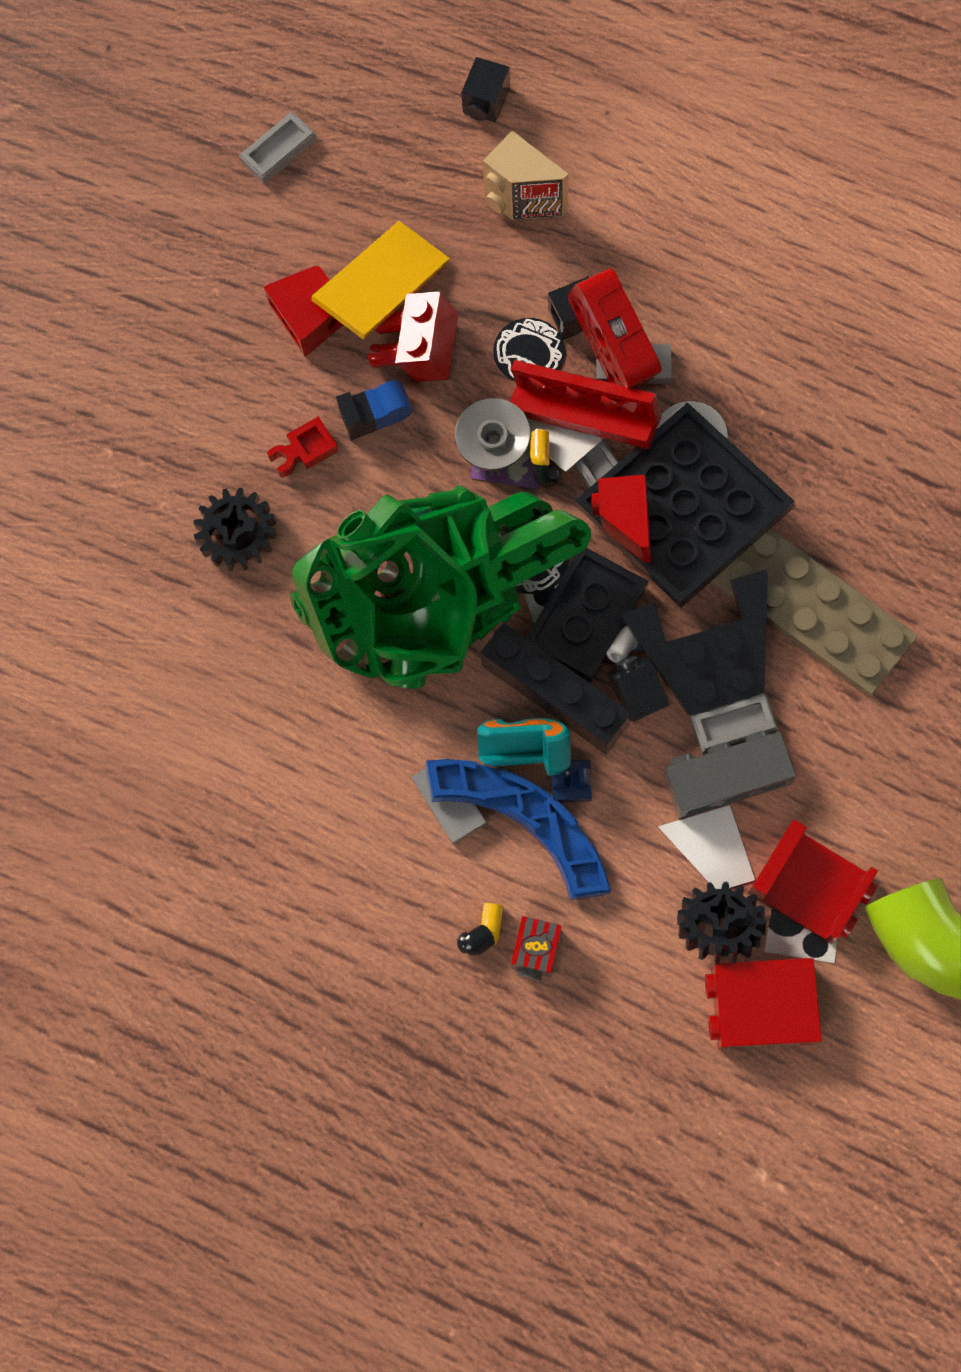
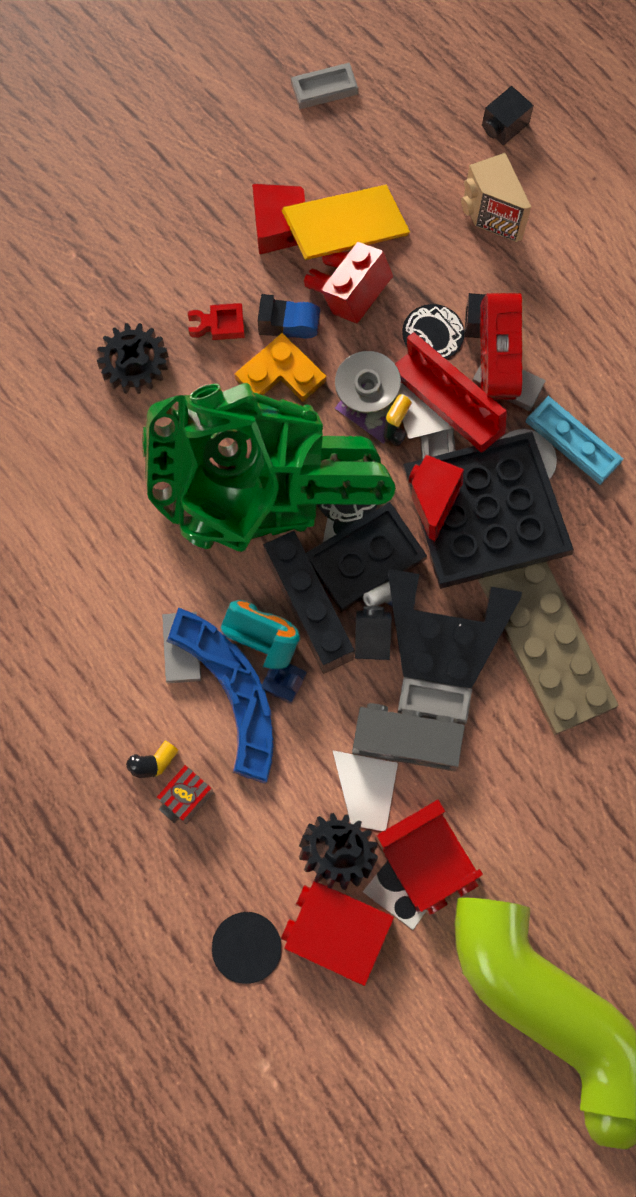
camera: 20 degrees right, 0 degrees up
(393, 457) = (282, 362): none -> light orange plate
(679, 1068) = (246, 947): none -> black sticker
(731, 391) = (574, 440): none -> medium azure tile

